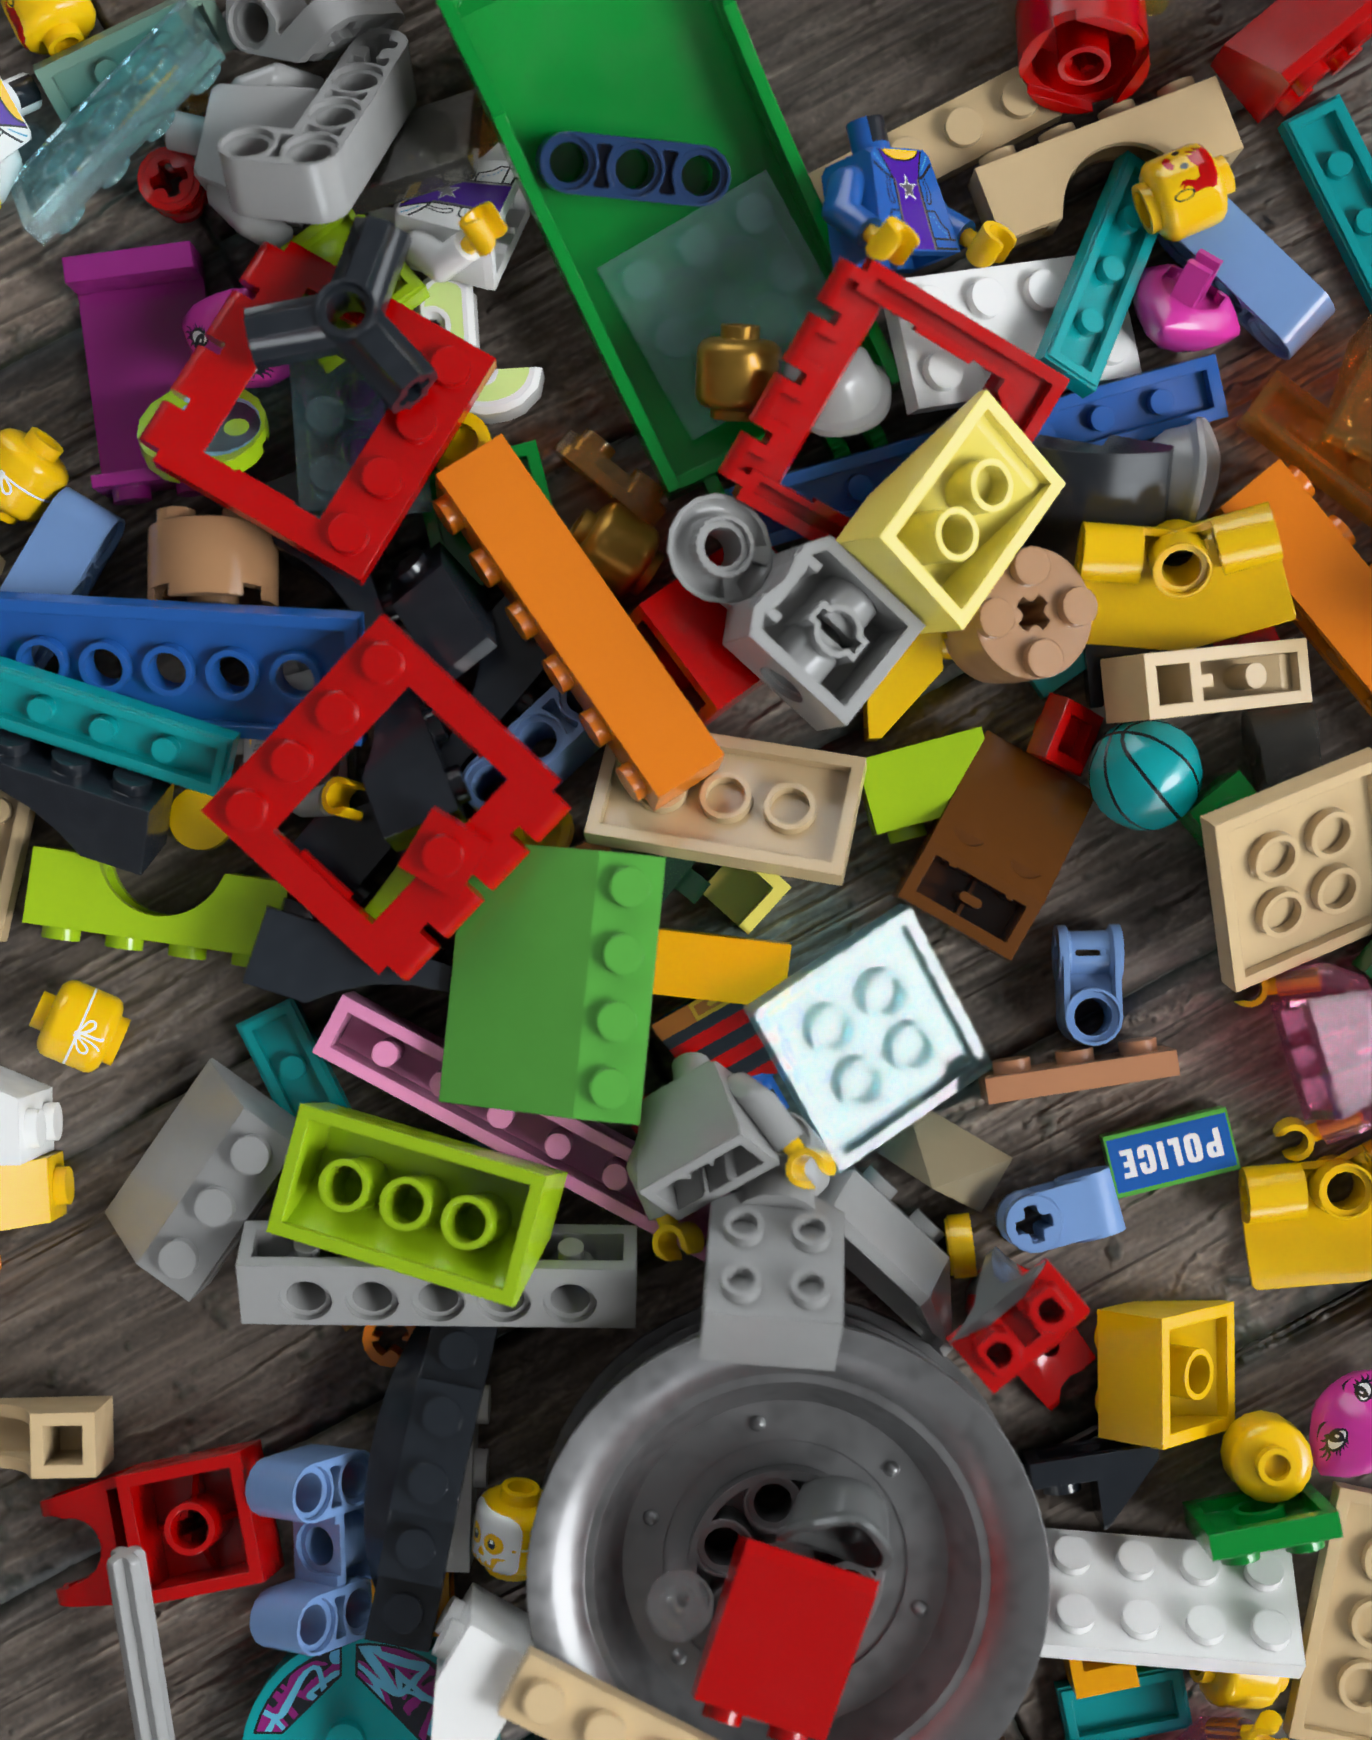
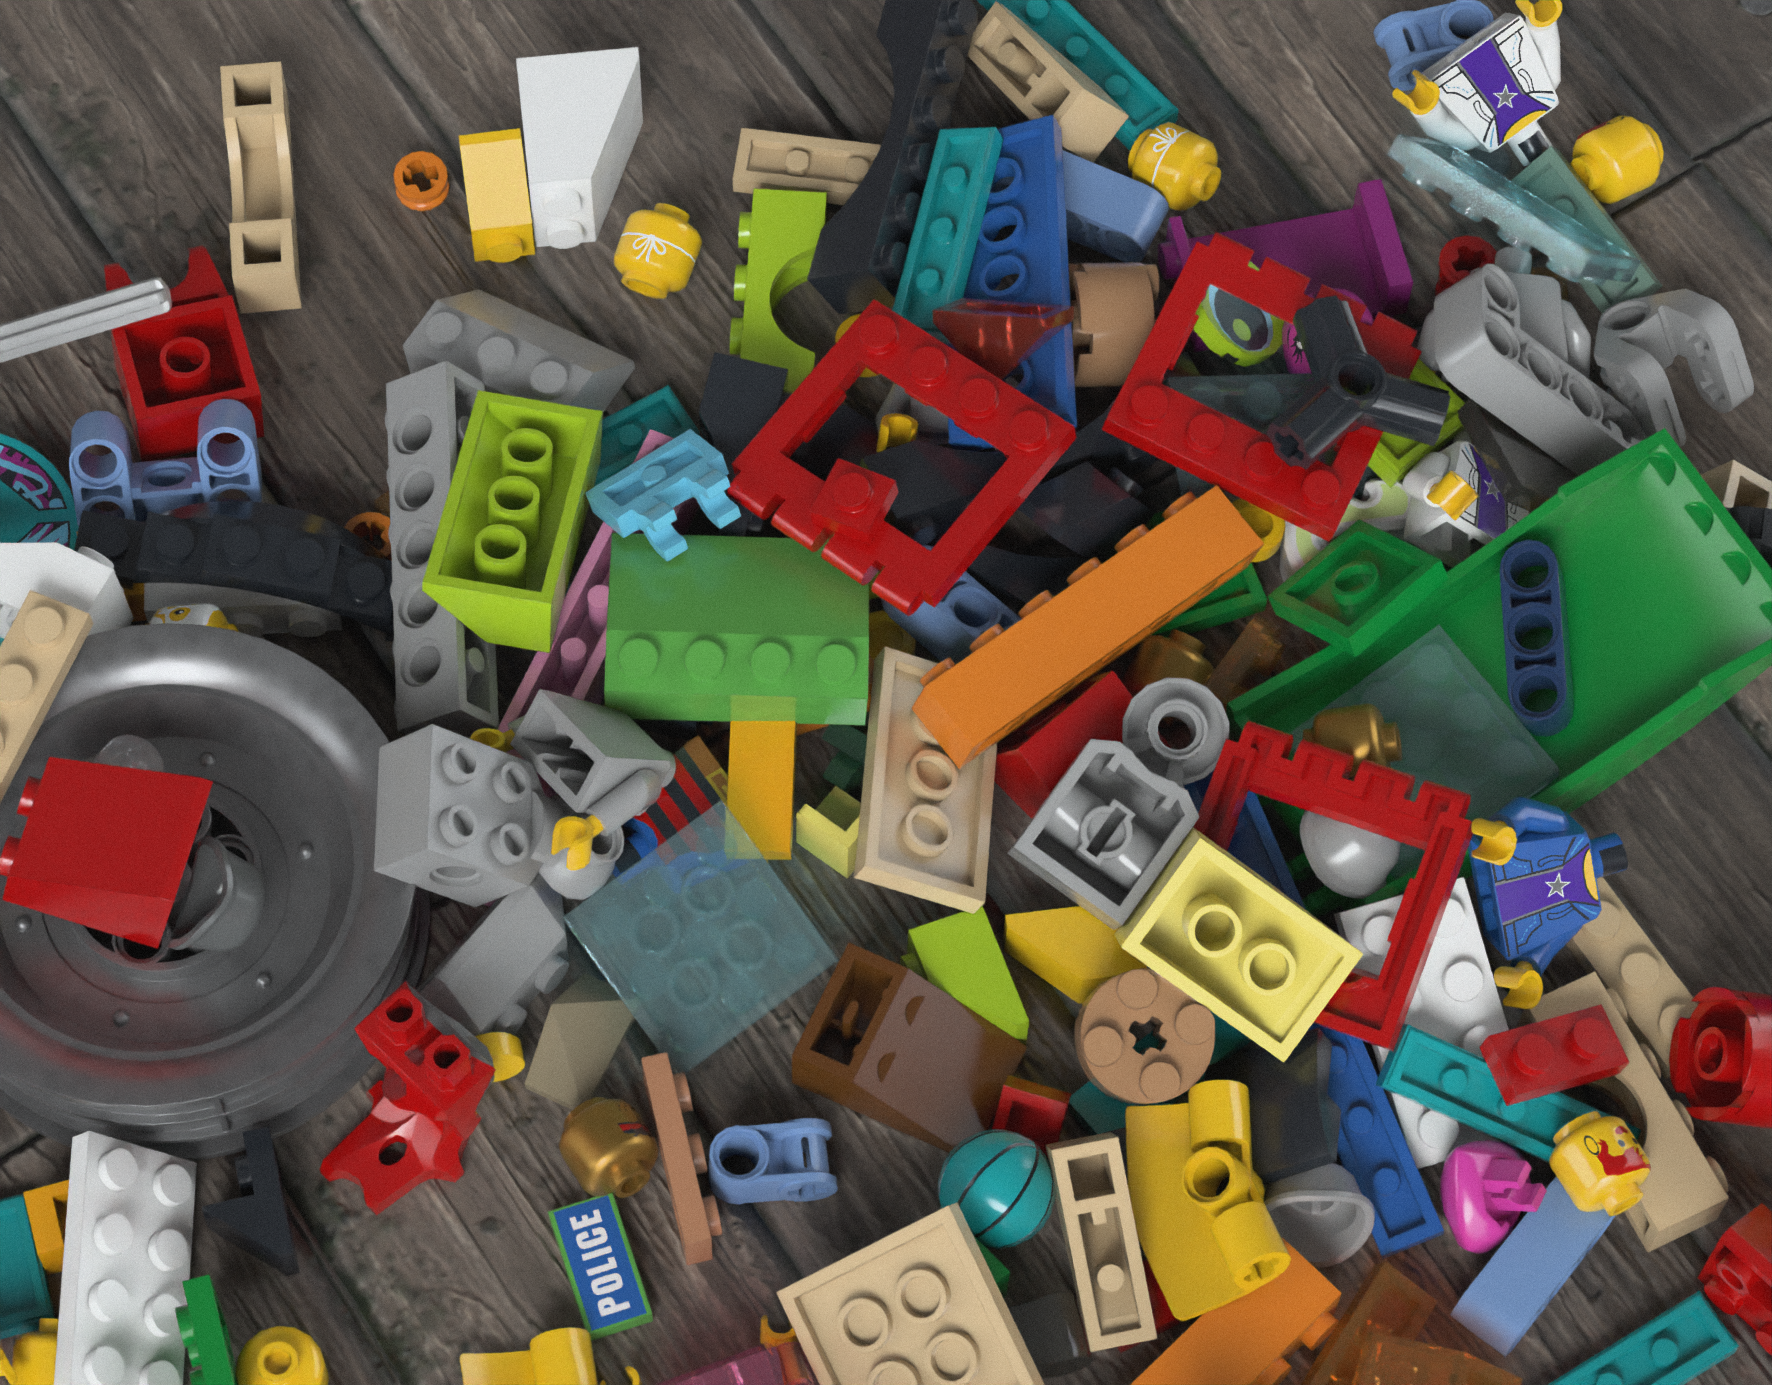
camera: 85 degrees right, 25 degrees down
(243, 681) = (999, 332): none -> clear red slope
(389, 1049) = (651, 487): none -> medium azure plate
(561, 342) = (1358, 587): none -> green plate
(1064, 1138) = (608, 1147): none -> pearl gold head
(1072, 219) = (1554, 1054): none -> red plate
(1072, 1207) = (533, 1160): medium blue piece -> none
(1165, 1371) = (369, 1273): yellow slope -> none

